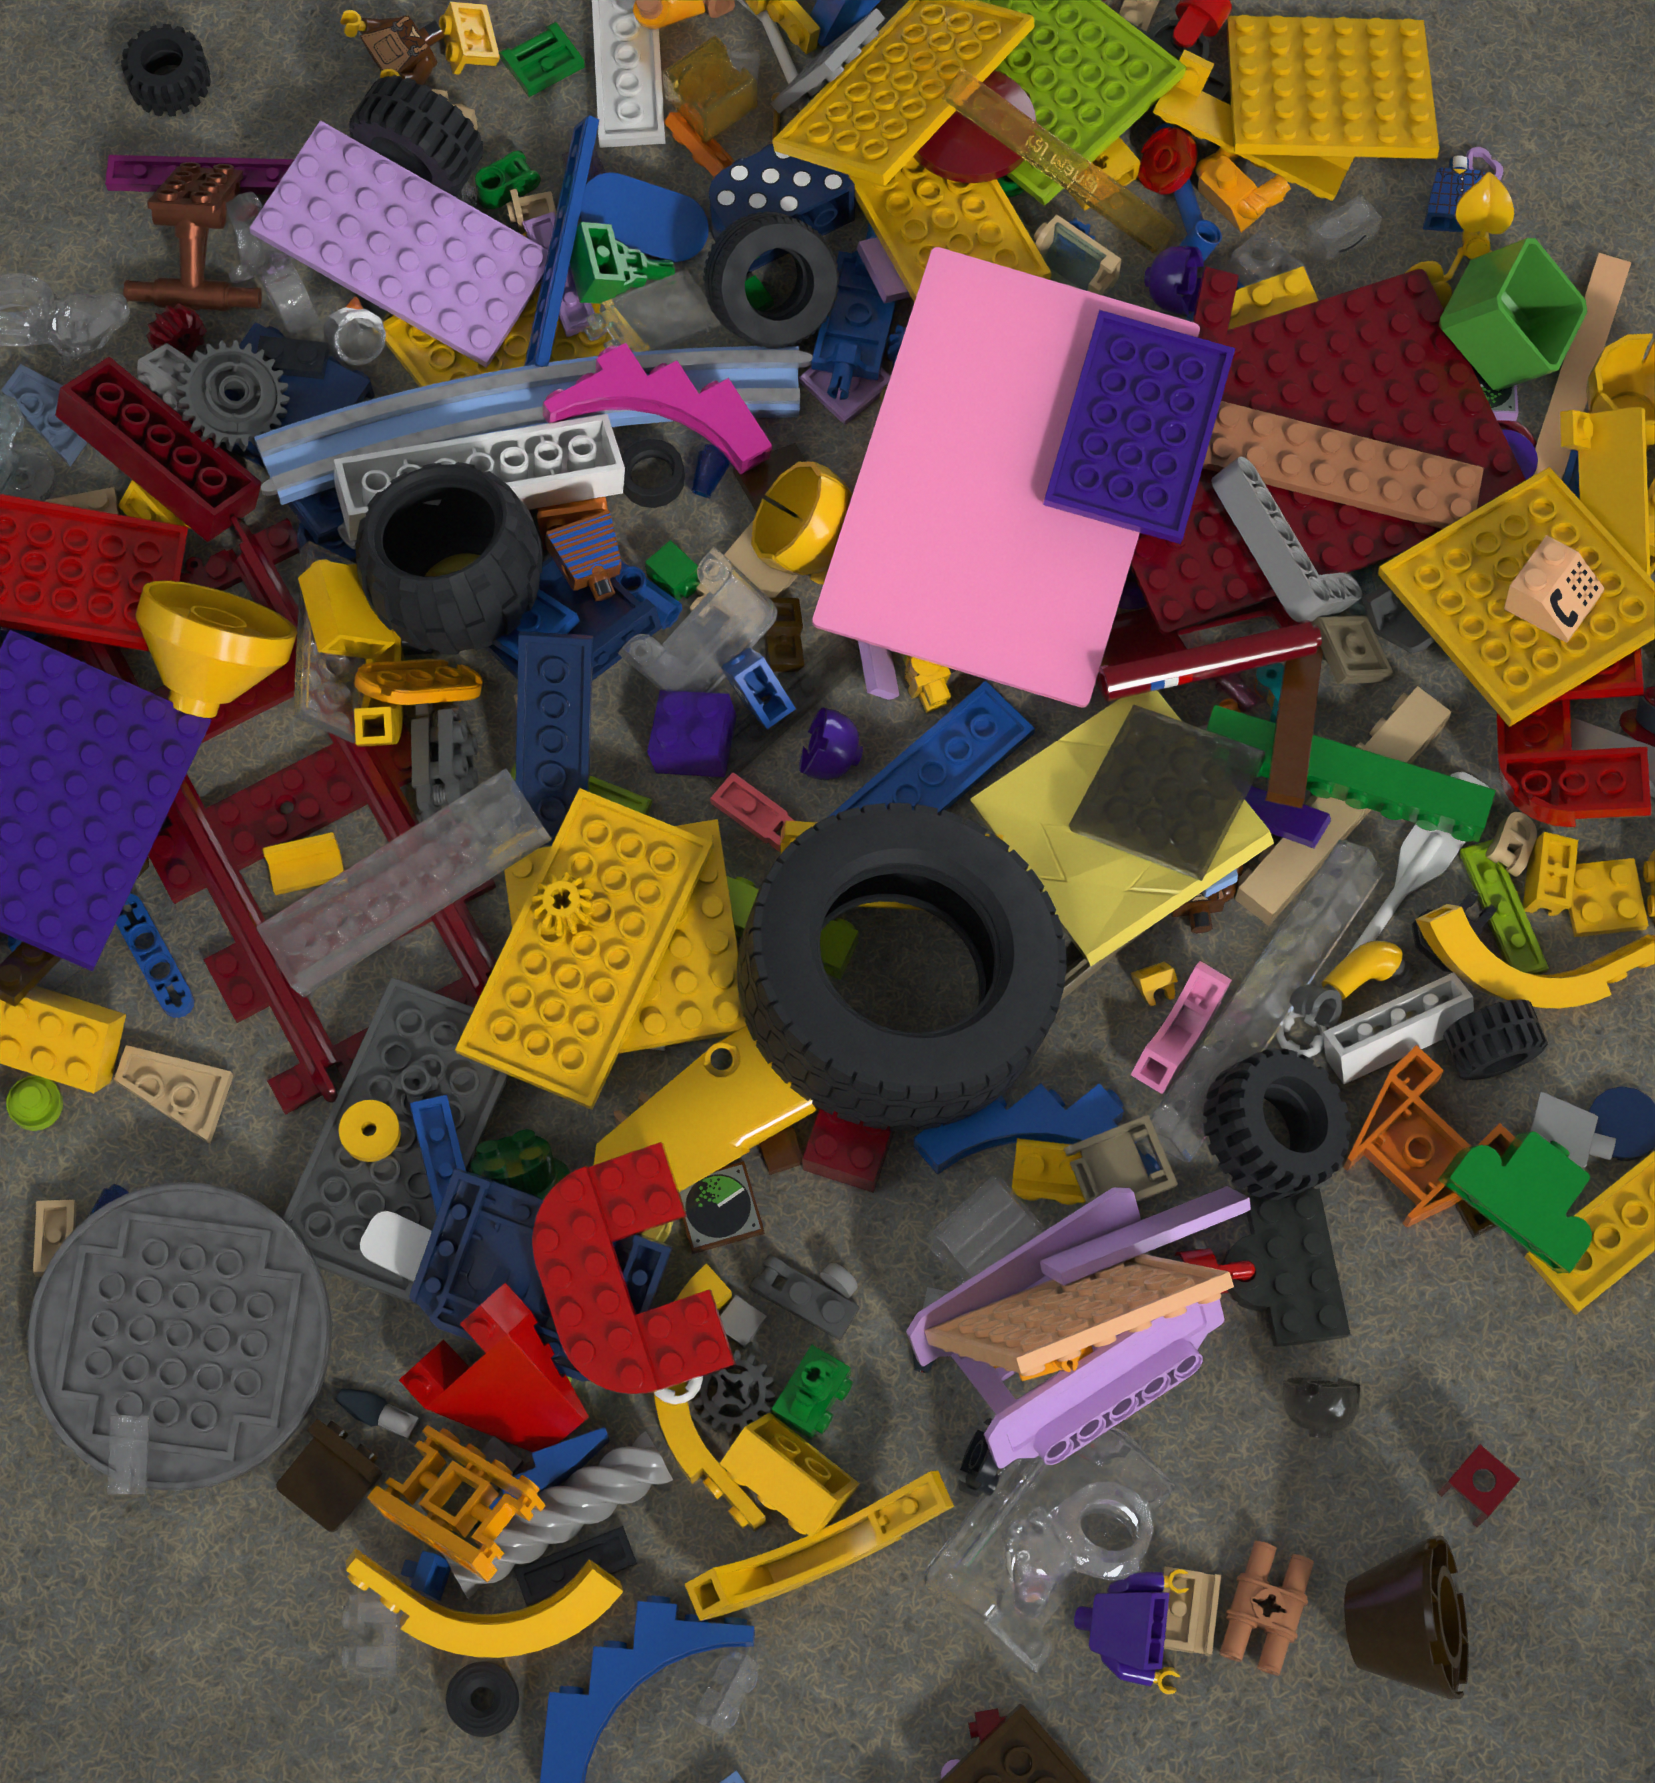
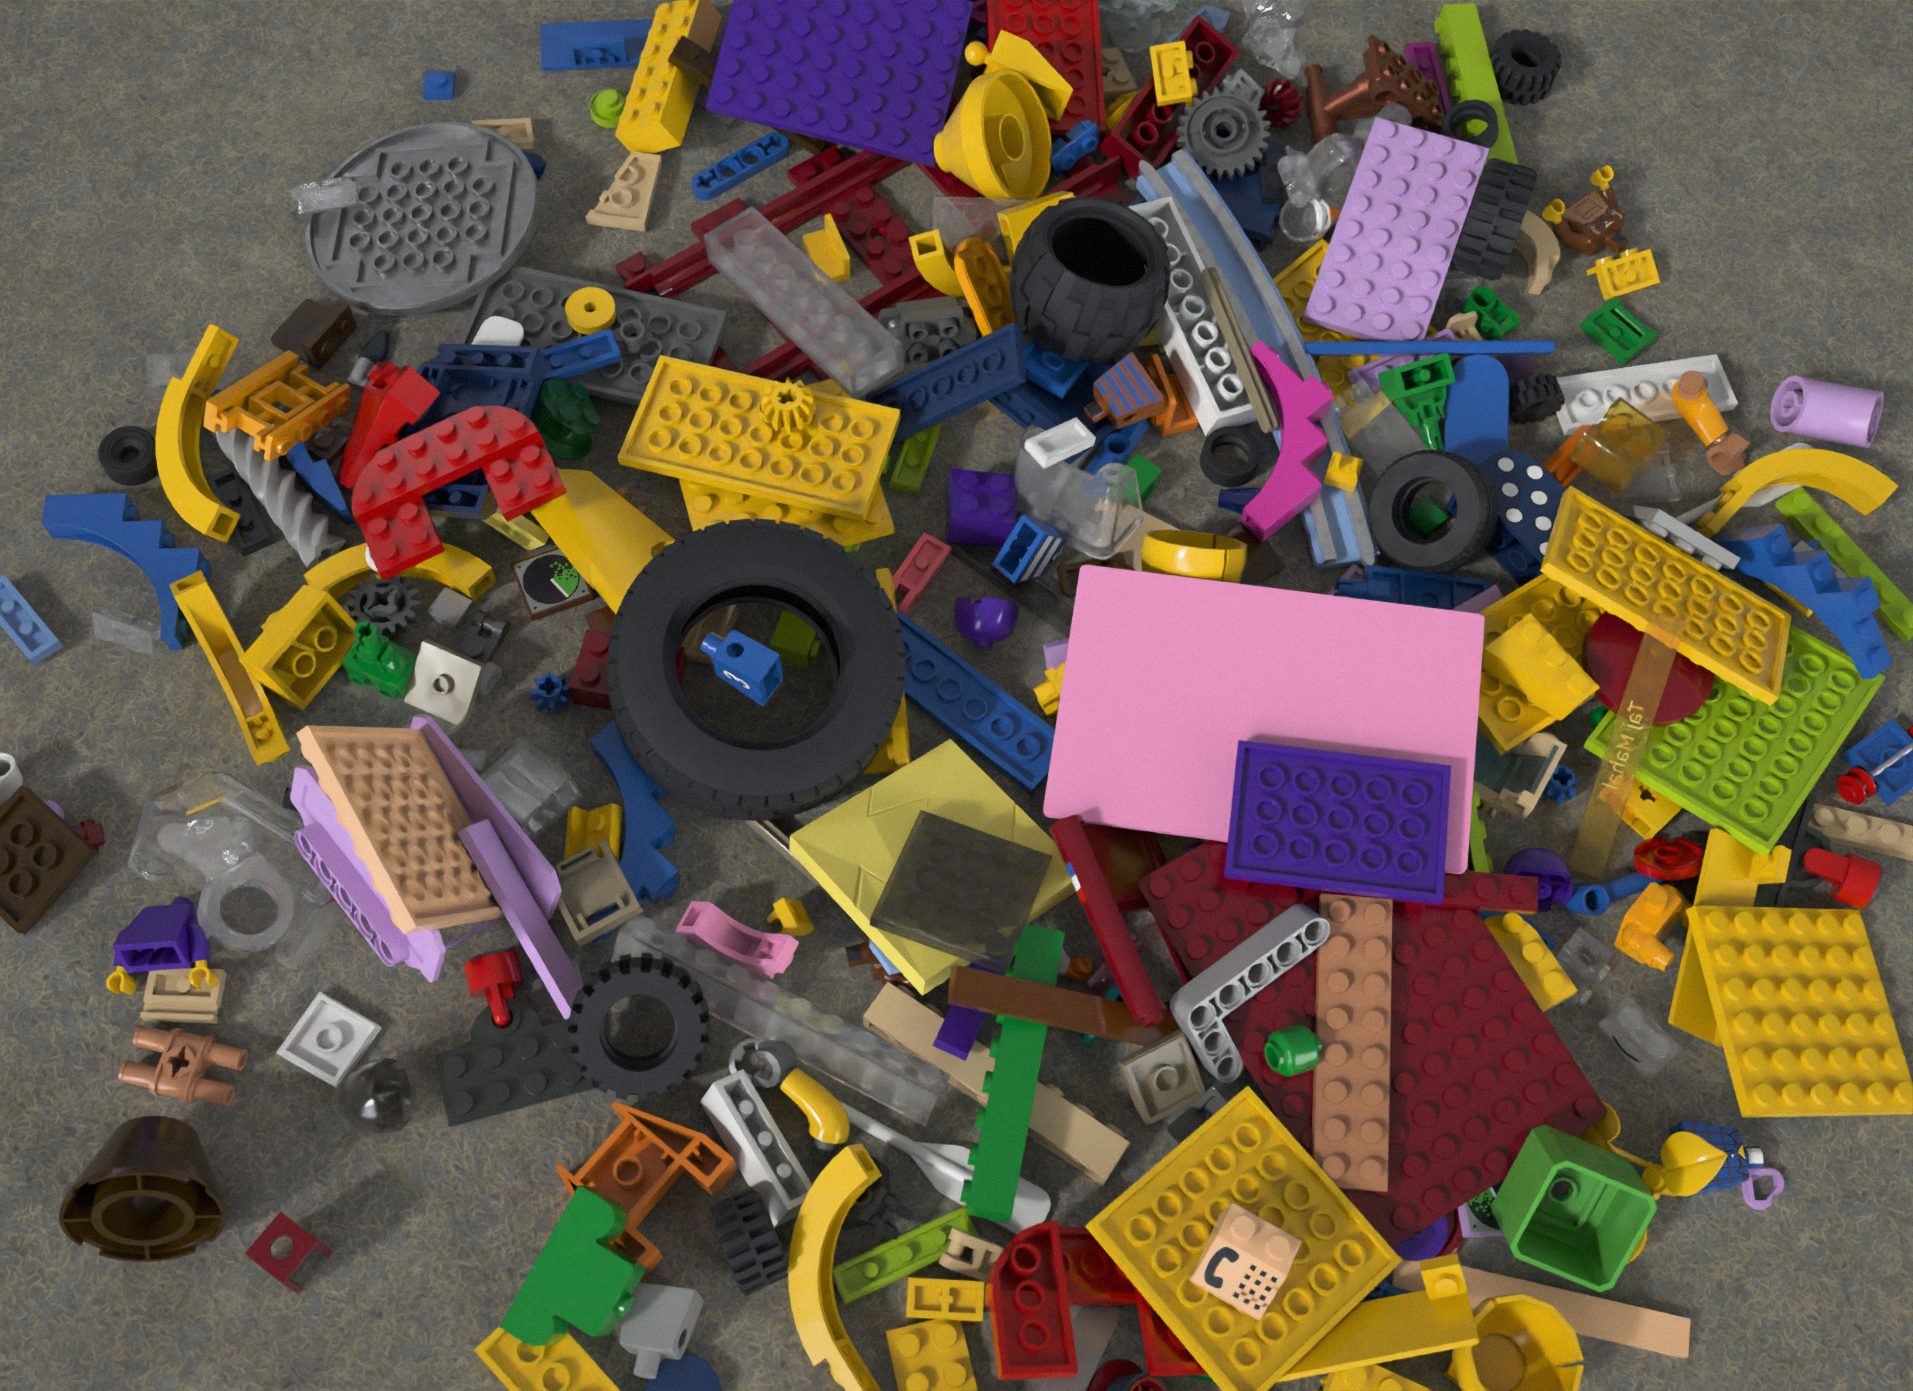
camera: 75 degrees right, 5 degrees down
(113, 596) = (1020, 55): none -> yellow slope
(148, 430) = (1171, 73): none -> yellow bracket
(191, 126) = (1472, 73): none -> lime brick
(201, 553) = (1082, 138): none -> blue hinge
(240, 122) = (1472, 110): none -> black tyre
(303, 325) = (1295, 168): none -> clear hinge
(543, 428) = (1239, 350): none -> dark tan axle
(627, 152) = (1535, 398): none -> black tyre
(657, 621) = (1059, 442): none -> white tile
(704, 357) = (1343, 471): none -> yellow tile
(846, 1320) = (445, 683): none -> plate
(856, 1210) = (557, 699): none -> blue gear
(933, 949) = (745, 664): none -> blue torso
(974, 215) = (1539, 668): none -> yellow wedge
(1246, 1458) = (329, 1040): none -> white tile
(1351, 519) = (1293, 1050): none -> green head

